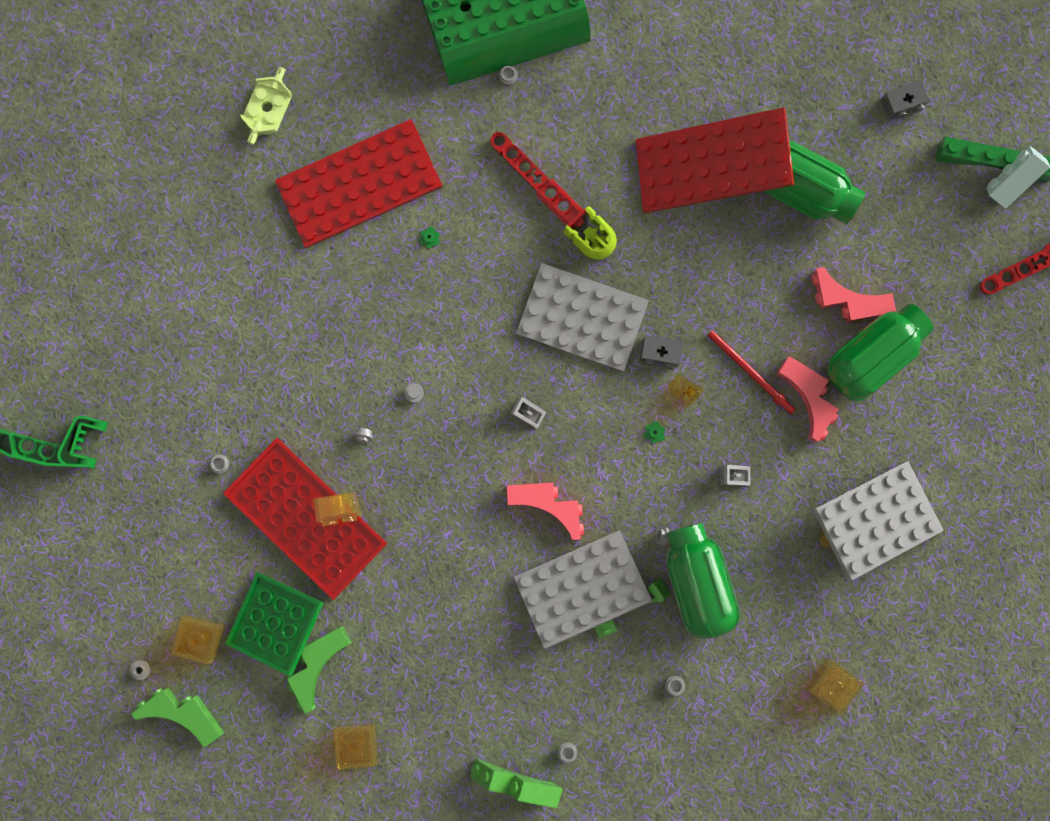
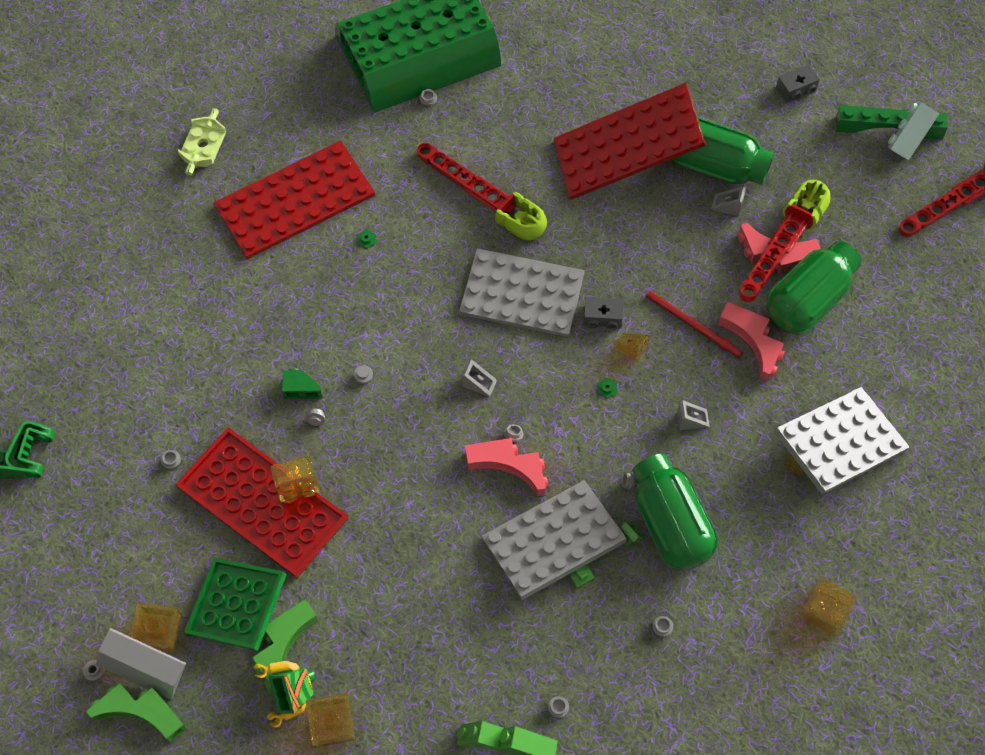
camera: 10 degrees left, 20 degrees down
(182, 672) = (140, 663): none -> light grey slope
(320, 712) = (290, 688): none -> torso
(349, 399) = (299, 385): none -> green slope
(556, 474) = (515, 432): none -> light grey plate
(809, 236) = (729, 201): none -> light grey slope
(877, 270) = (795, 217): none -> red piece

